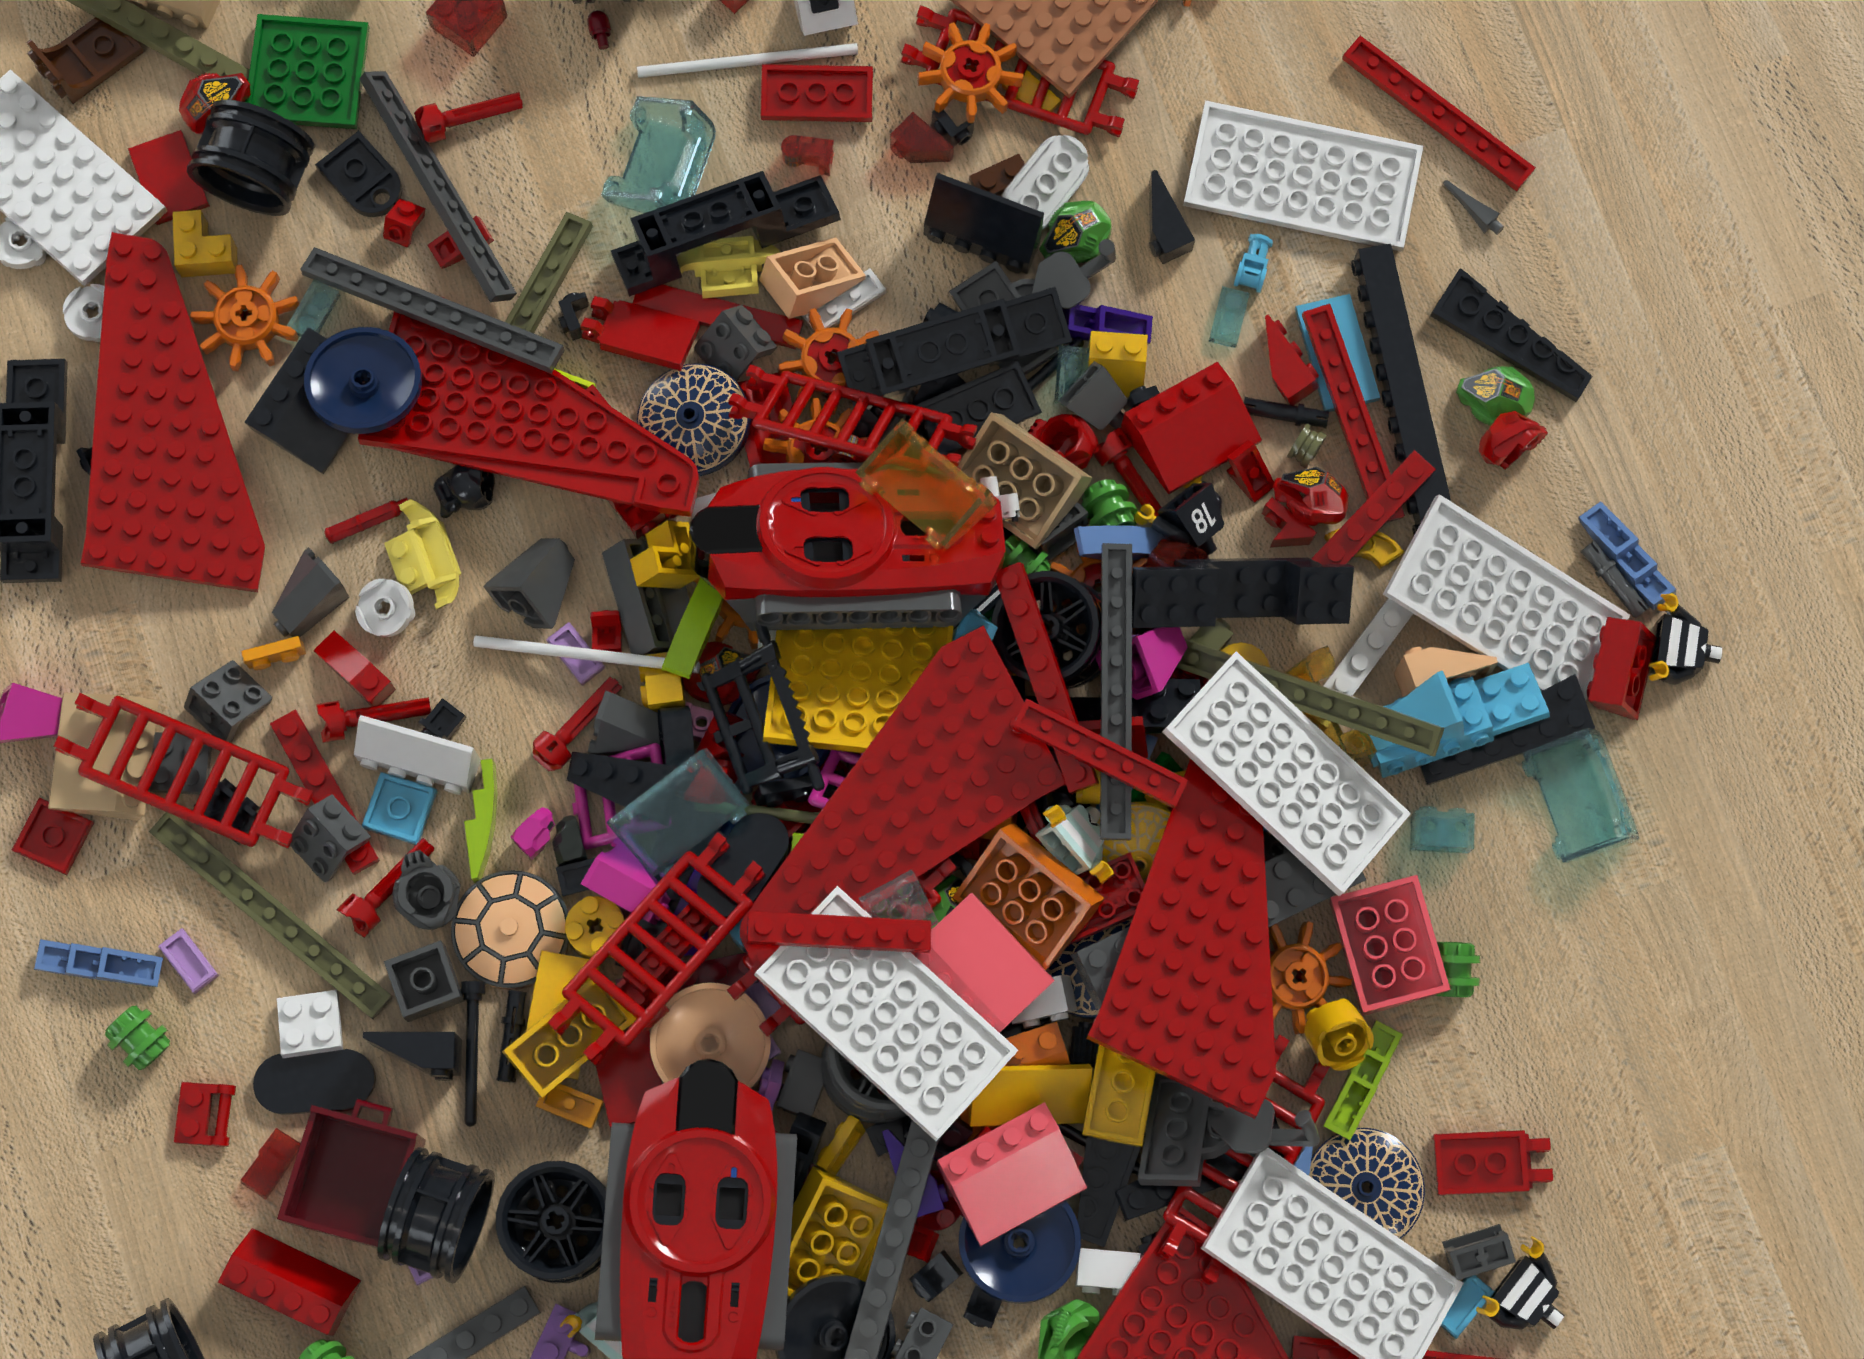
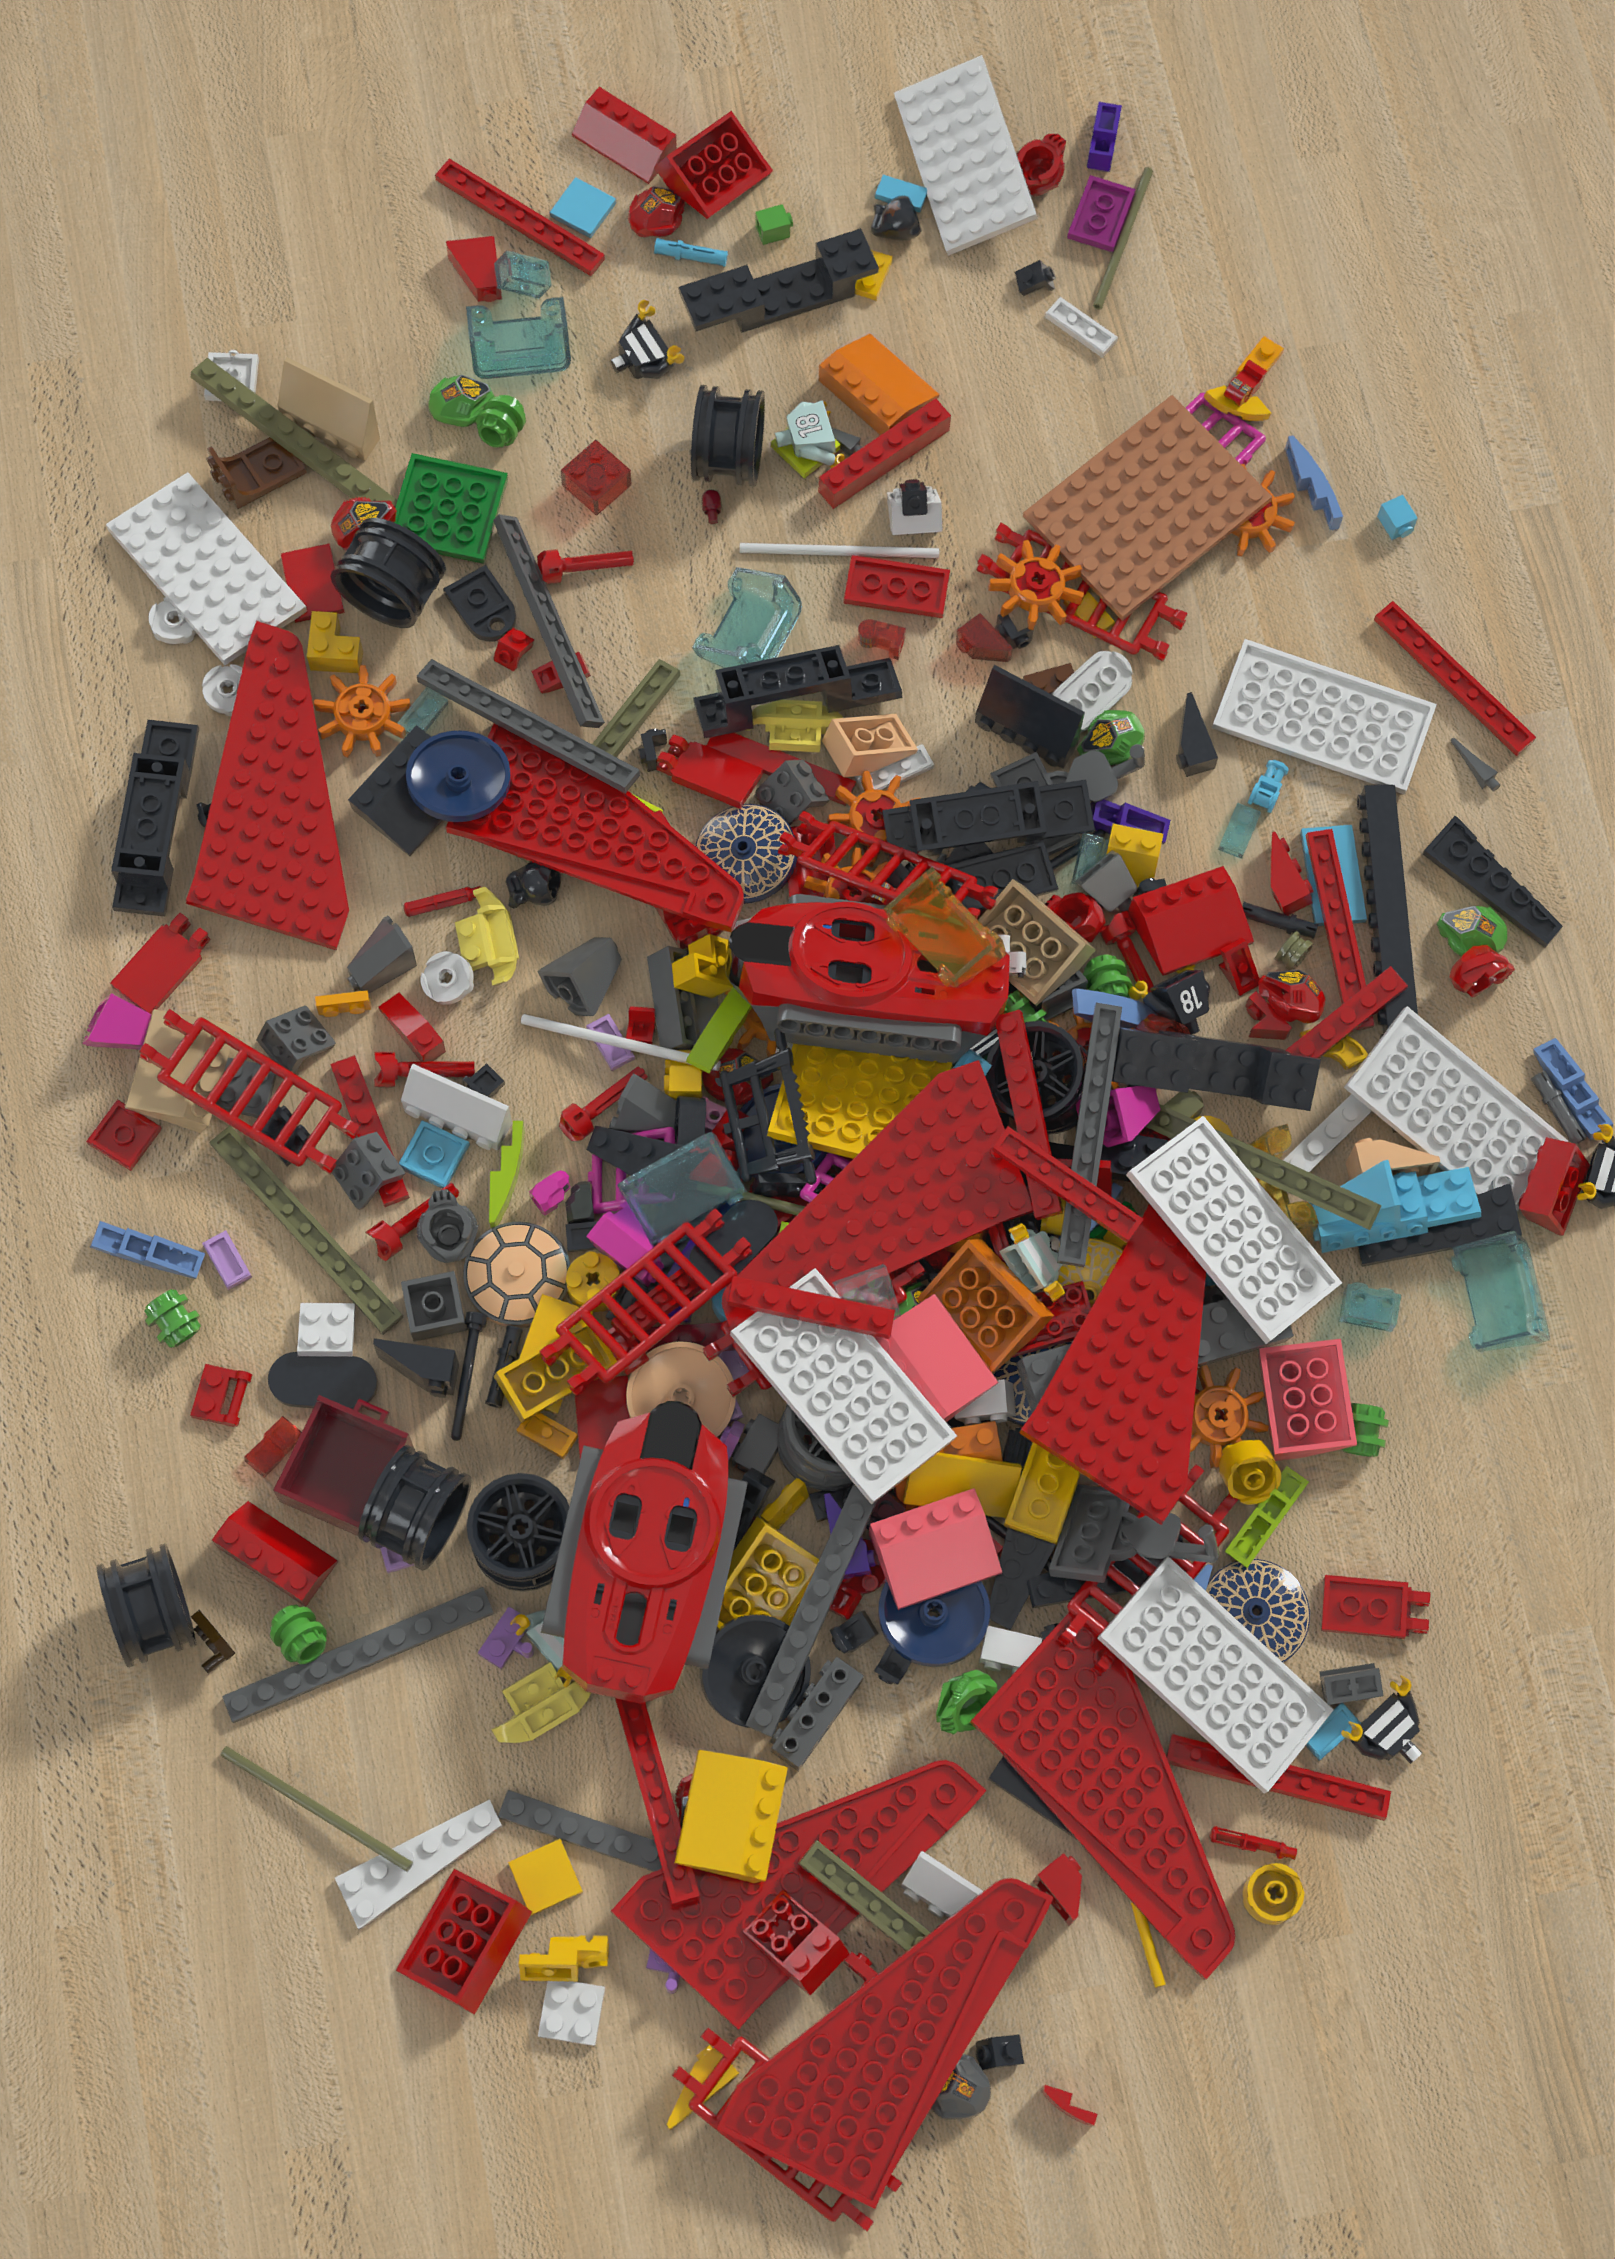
camera: 10 degrees right, 5 degrees down
(64, 637) = (161, 964): none -> red tile

